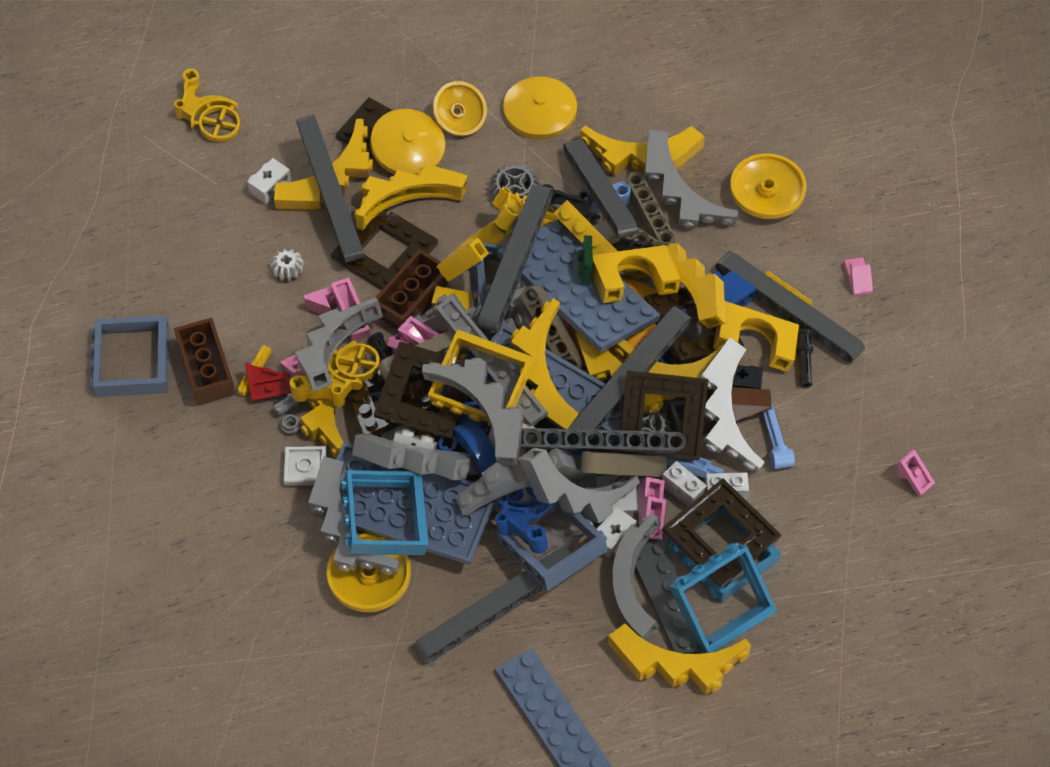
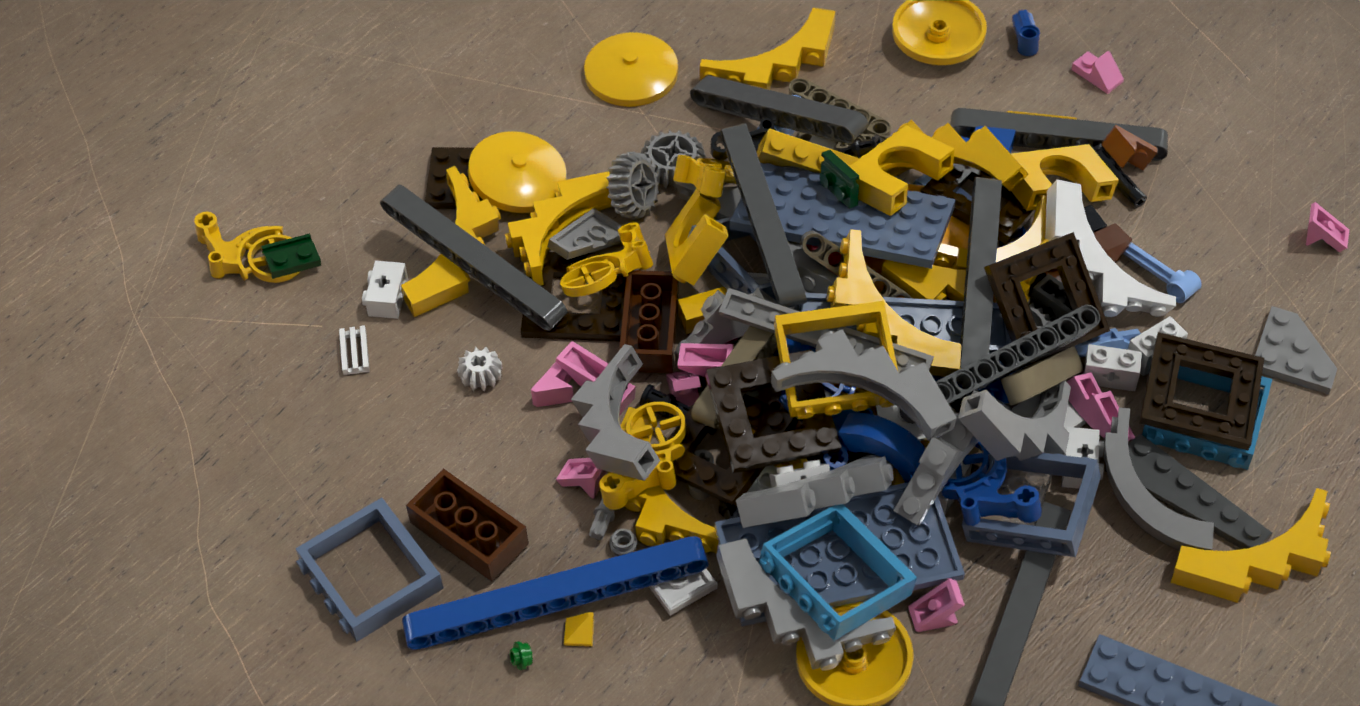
camera: 30 degrees left, 5 degrees down
(178, 459) = (521, 655): none -> green plate
(224, 432) = (554, 593): none -> blue beam
(225, 464) = (579, 630): none -> yellow slope
(227, 127) = (291, 256): none -> dark green plate
(236, 201) = (352, 334): none -> white tile
(259, 360) = (530, 504): yellow axle -> none
(266, 383) = (559, 510): red wing -> none
(418, 211) = (586, 235): none -> light grey wing
(421, 241) = (607, 266): none -> yellow piece
(444, 574) = (937, 607): none -> bright pink slope
(467, 101) = (555, 101): yellow dish -> none
(468, 192) = (632, 185): none -> light grey gear
(675, 191) = (849, 77): light grey arch -> none
(740, 624) = (1283, 509): dark azure window -> none
(818, 544) = (1294, 353): none -> light grey plate
(821, 338) = (1129, 148): none -> dark orange slope
(830, 220) = (1026, 33): none -> blue piece

